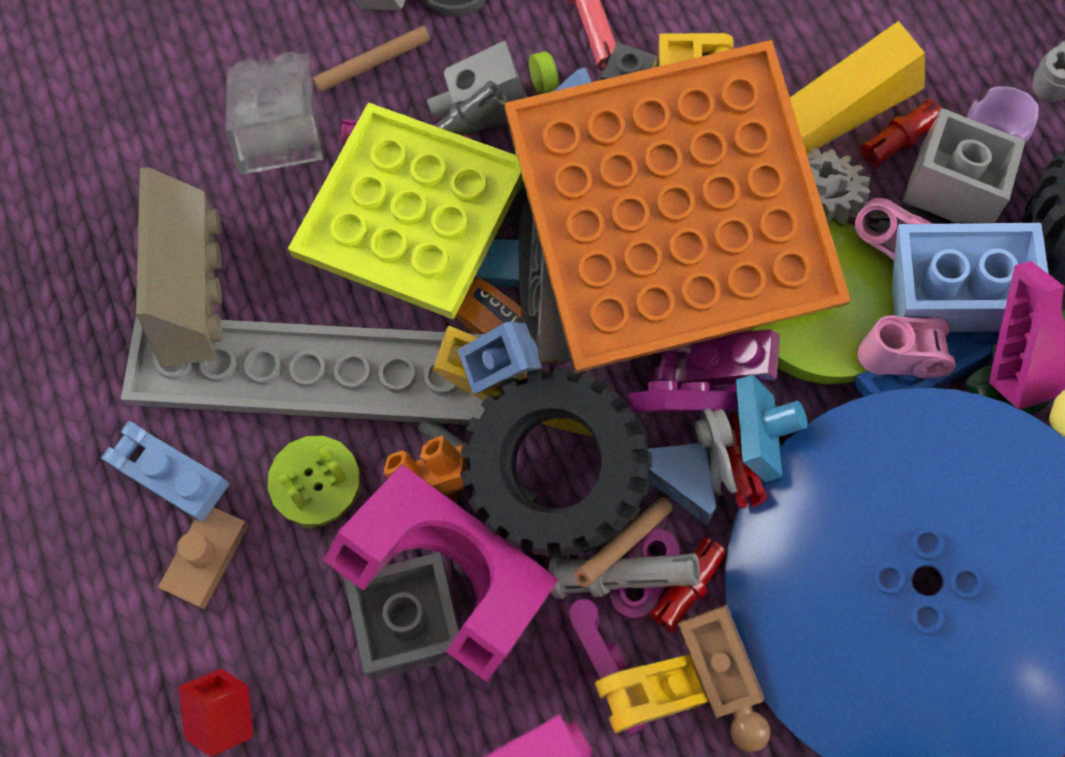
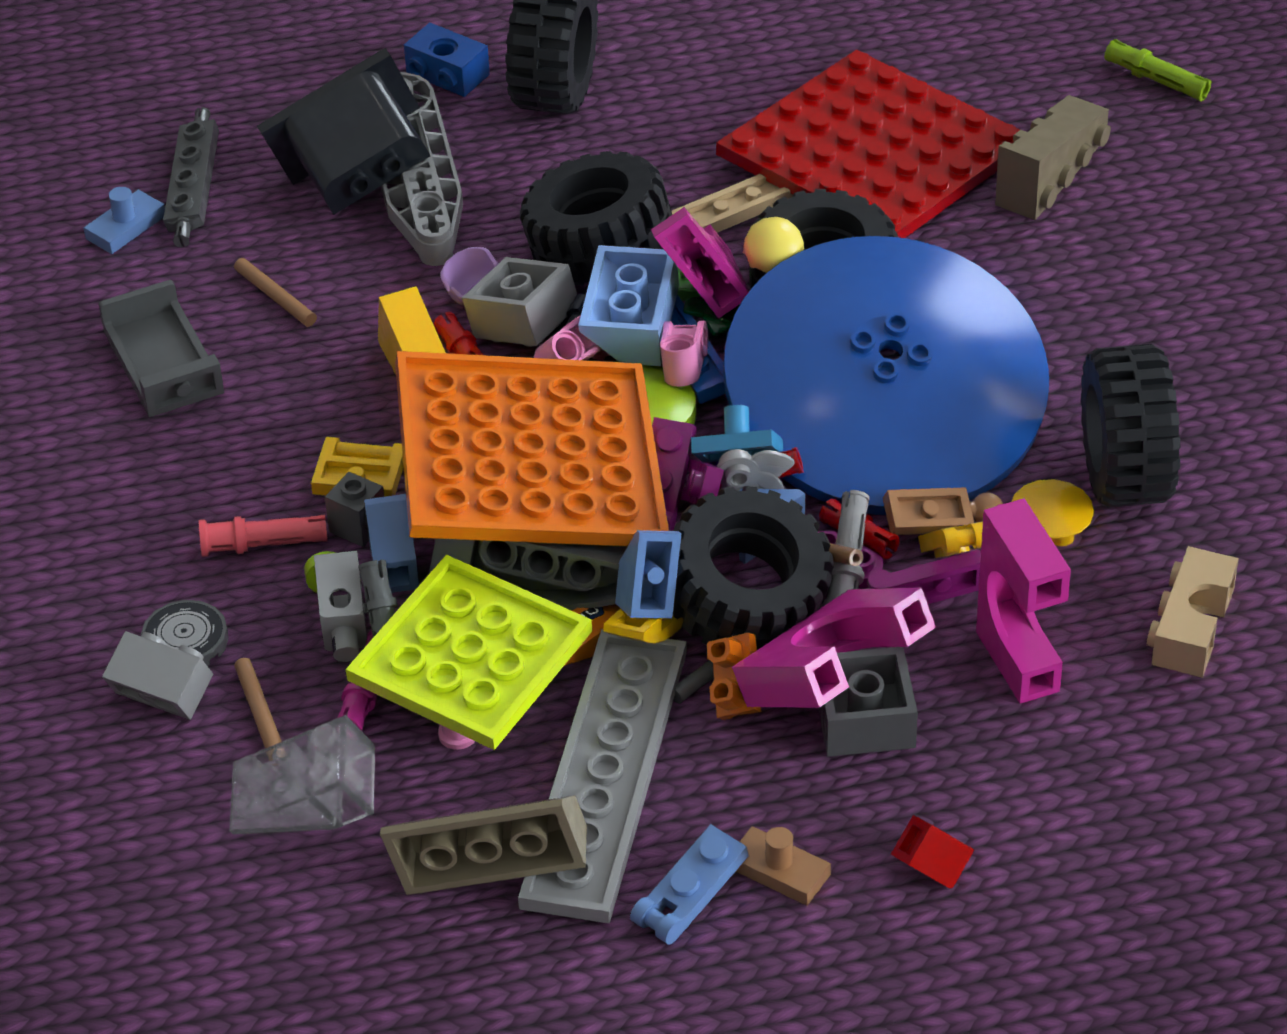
camera: 85 degrees left, 25 degrees down
(295, 493) = (726, 790): lime plate -> none

